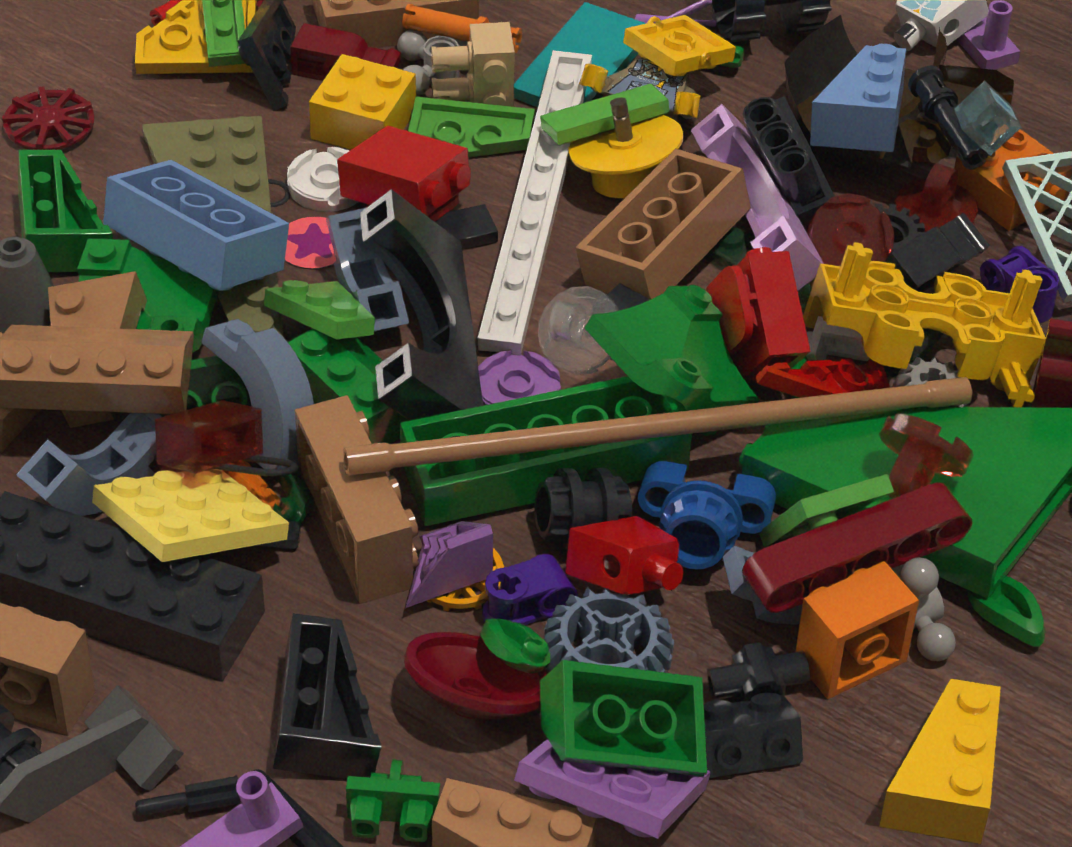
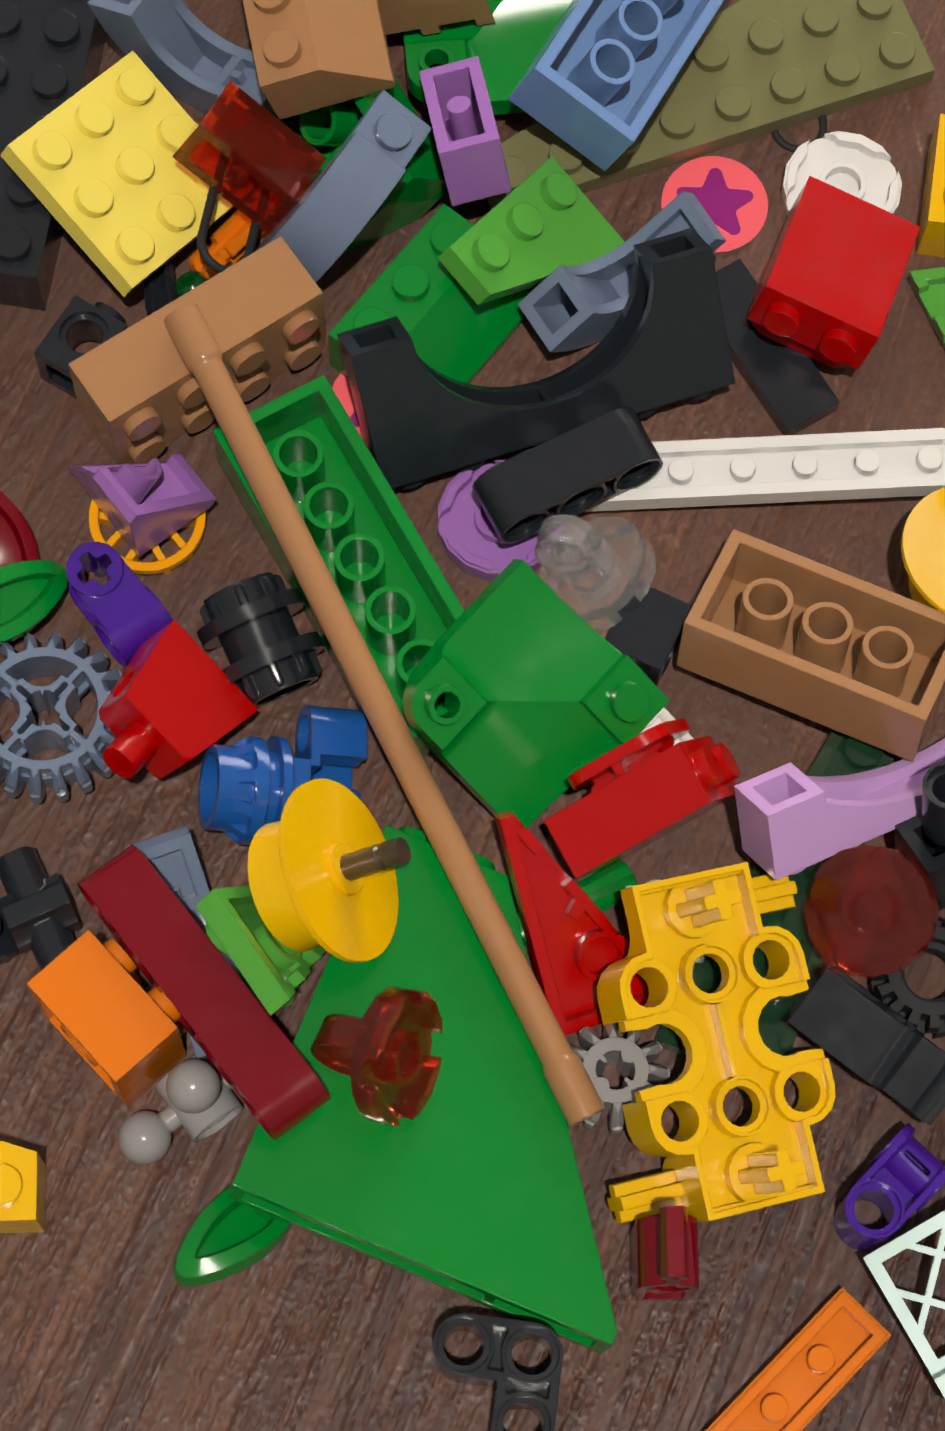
camera: 75 degrees right, 25 degrees up
(250, 300) = (465, 131): none -> medium lavender brick
(317, 578) = (76, 325): none -> black brick
(510, 323) = (567, 474): none -> black beam
(789, 465) = (327, 874): none -> yellow piece

